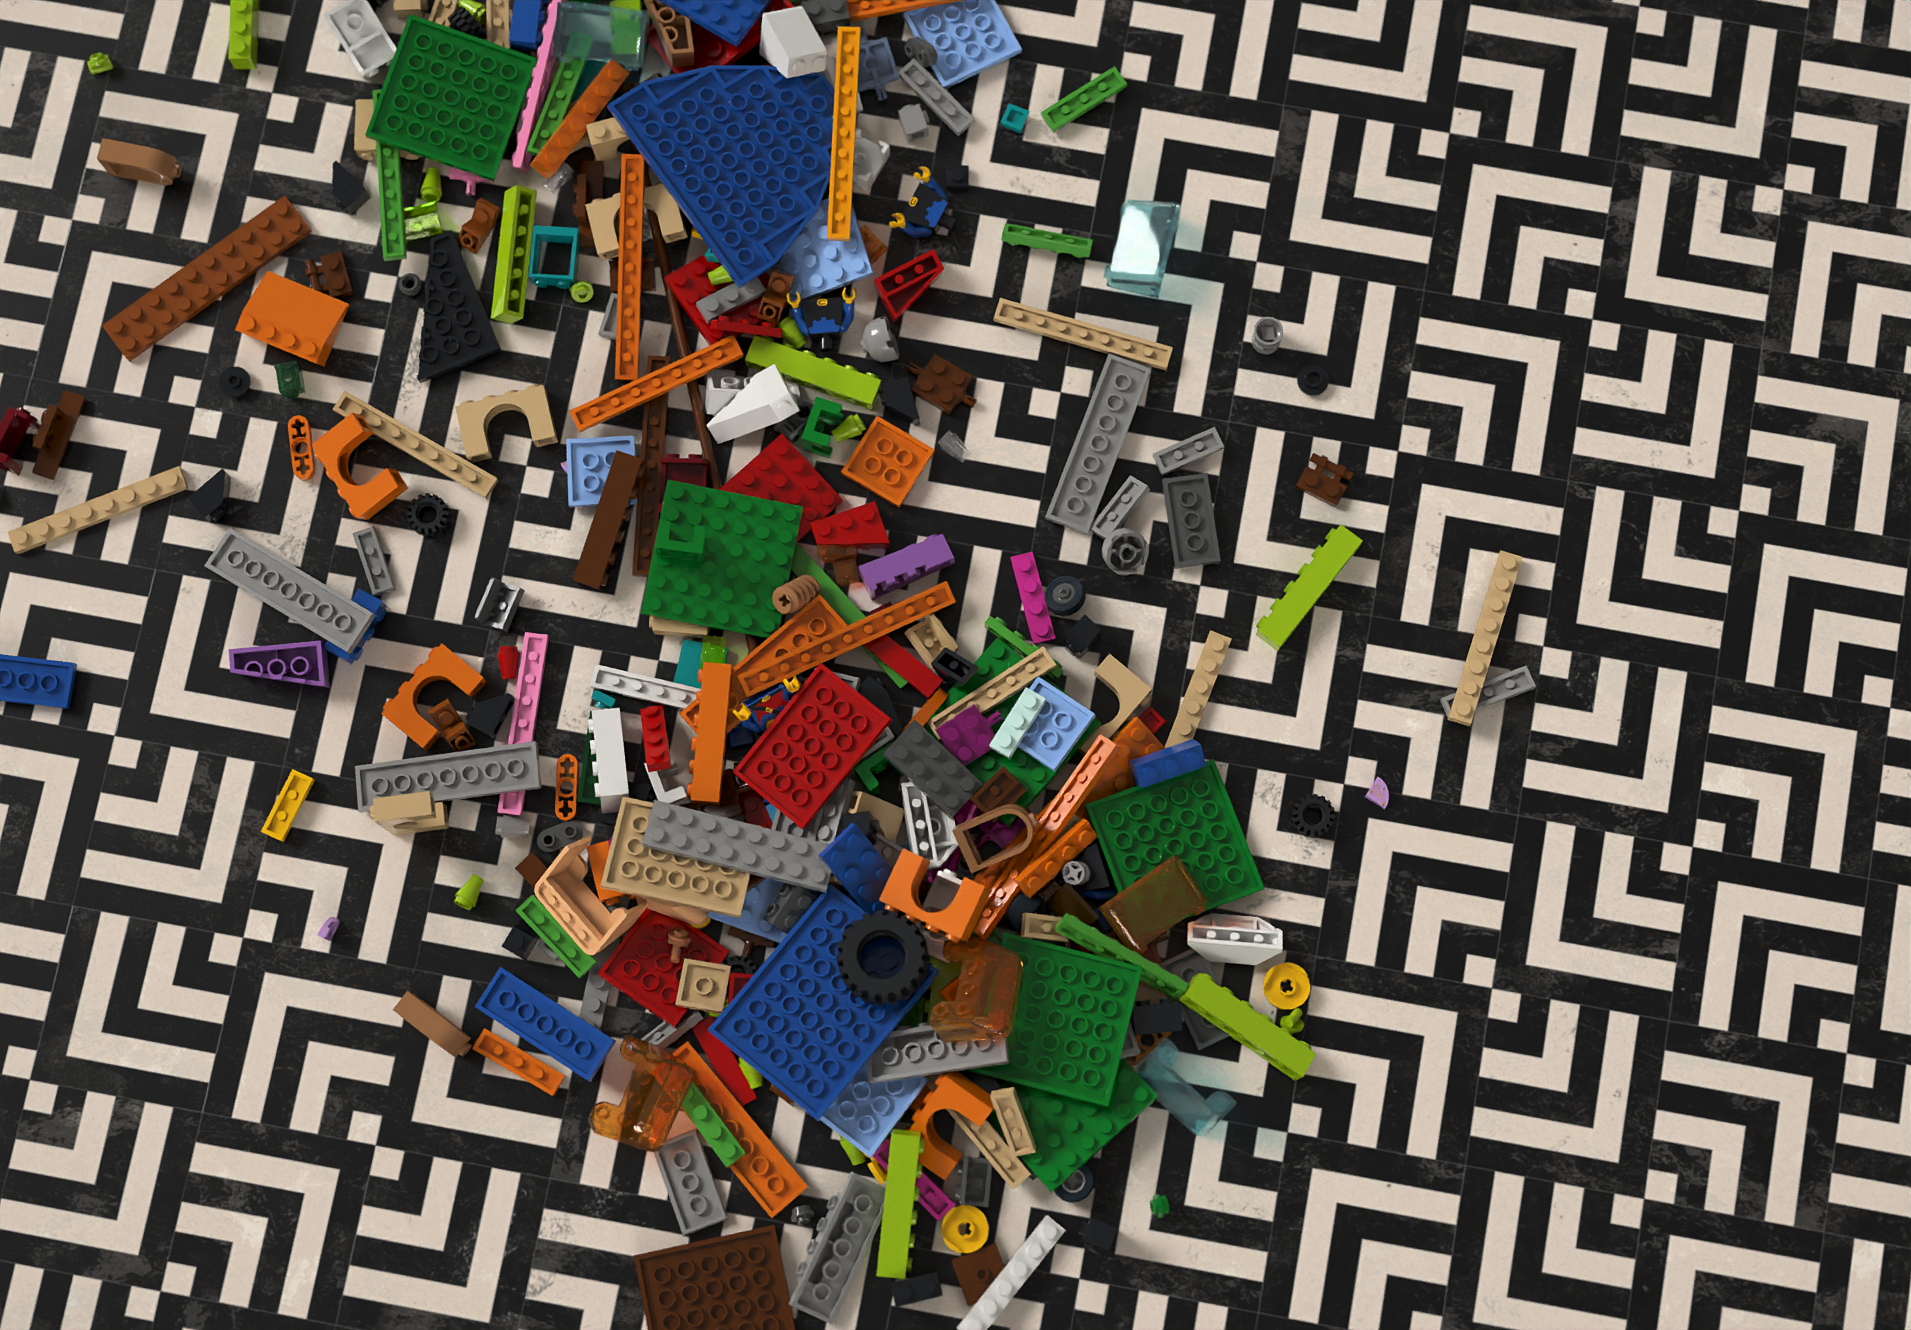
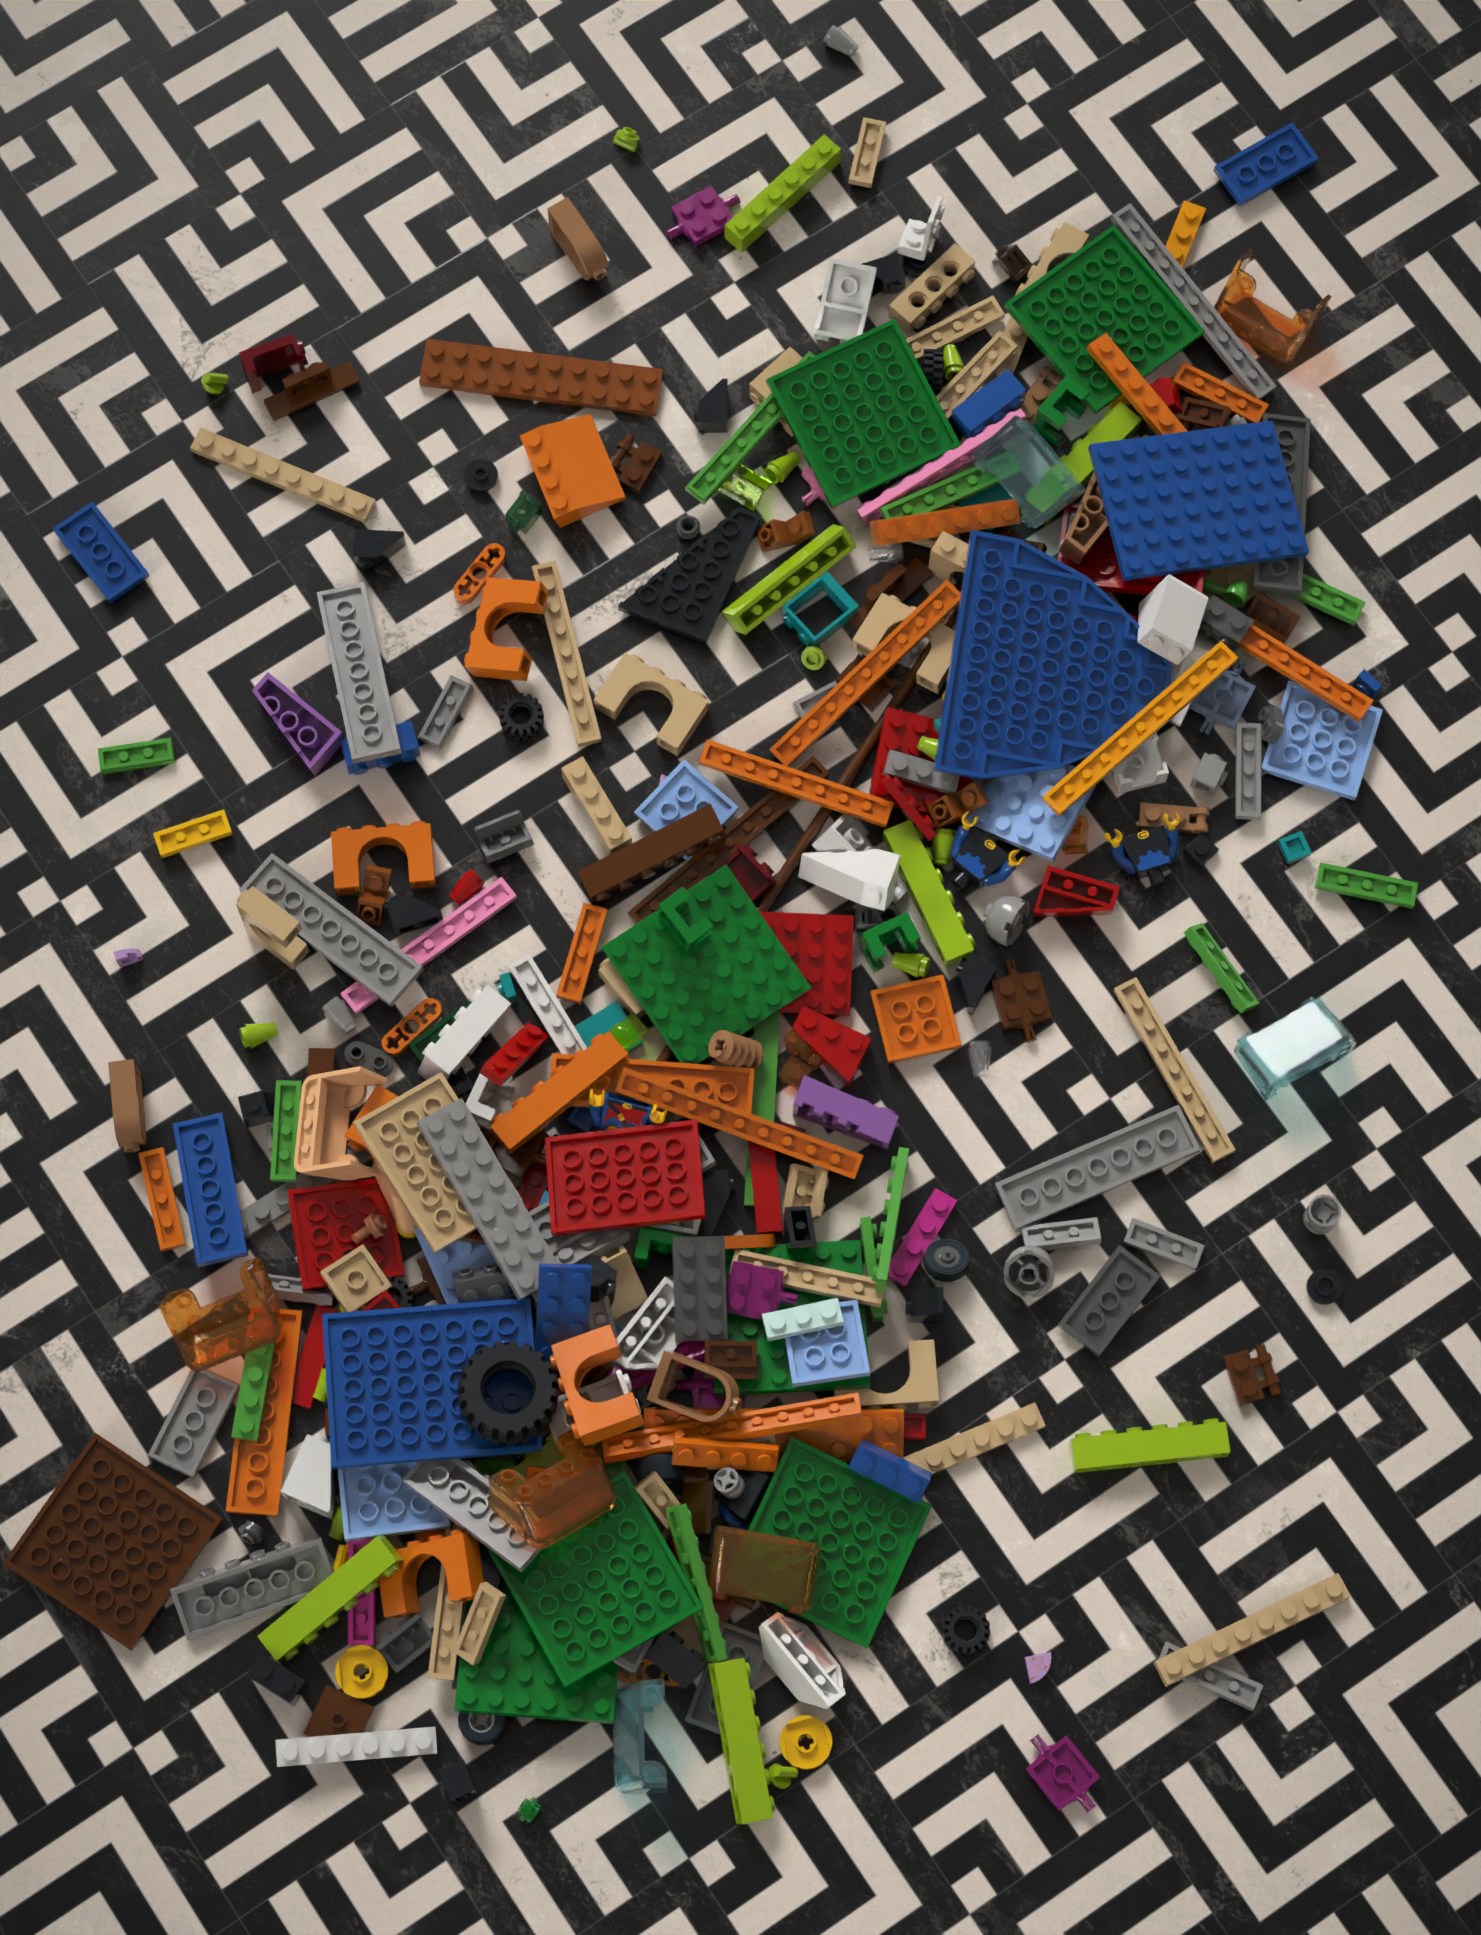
camera: 40 degrees right, 5 degrees down
(194, 792) = (136, 755): none -> bright green tile
(205, 67) = (702, 216): none -> magenta plate
(528, 521) = (597, 805): none -> tan arch
(629, 630) = (582, 953): none -> orange plate
(806, 1139) = (312, 1477): none -> white slope
(905, 183) = (1152, 816): none -> medium nougat plate
(1010, 610) = (888, 1228): none -> bright green plate
(1461, 843) = (1062, 1773): none -> magenta plate

